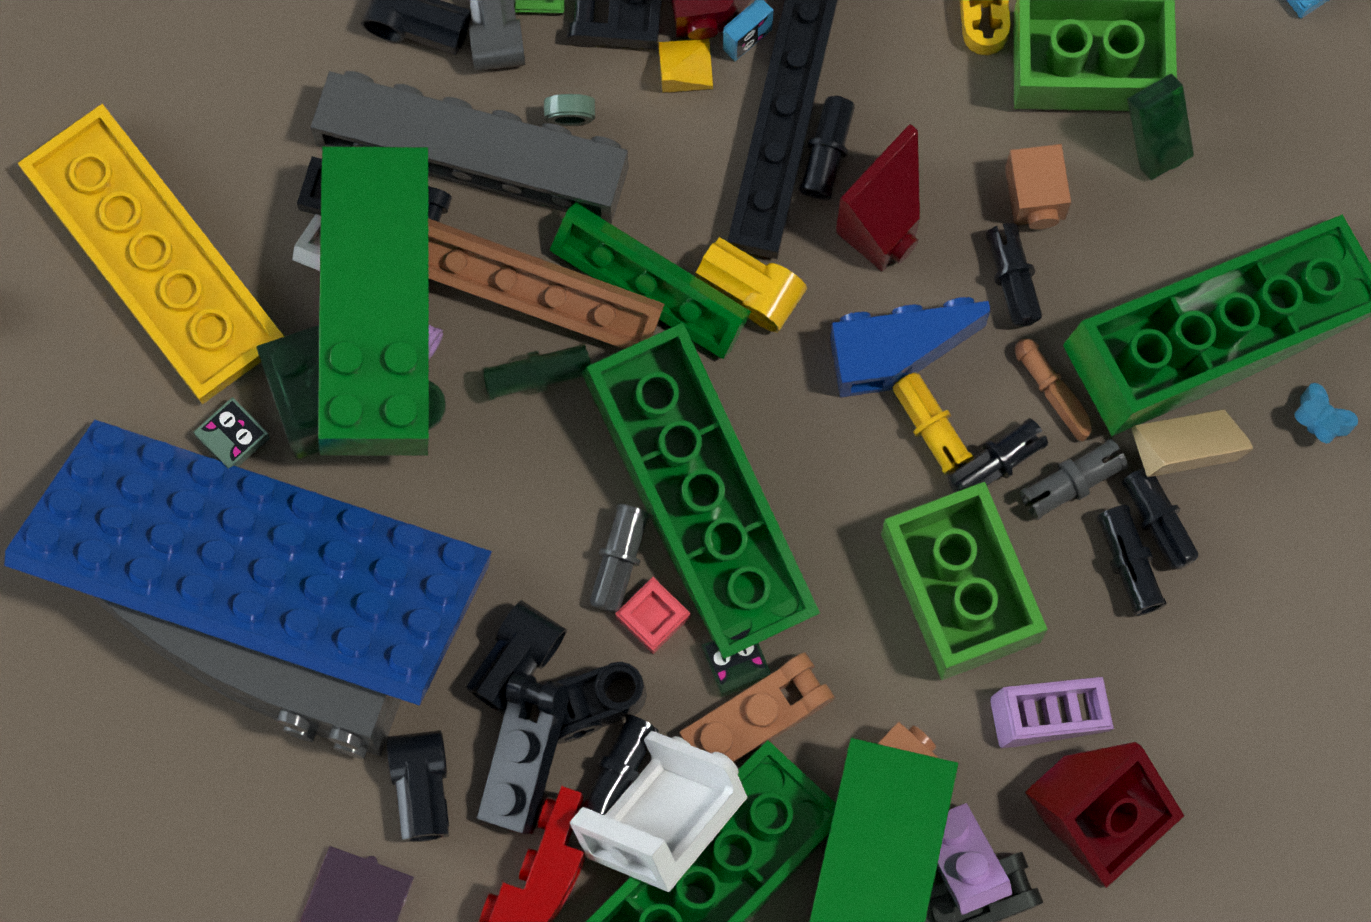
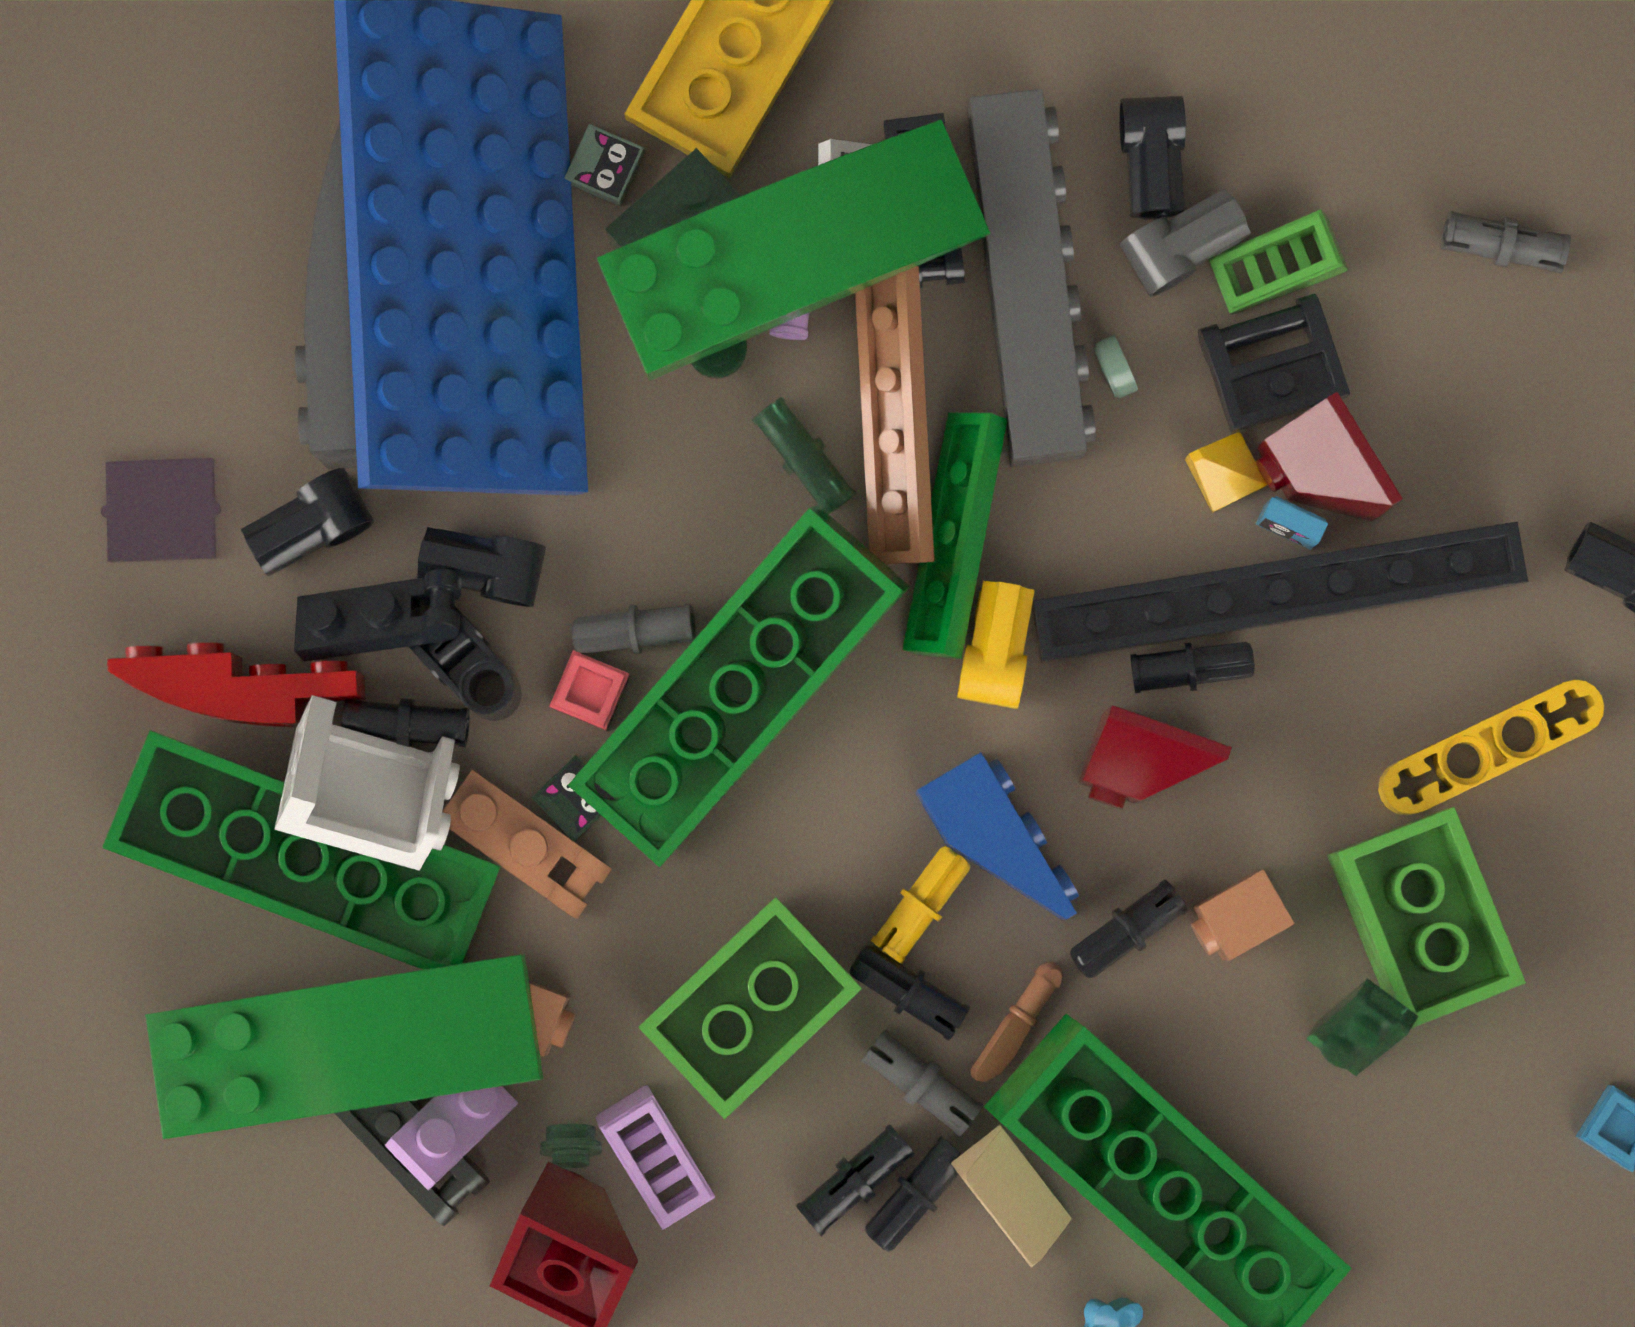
camera: 70 degrees right, 10 degrees up
(1017, 772) = (571, 1144): none -> clear green plate

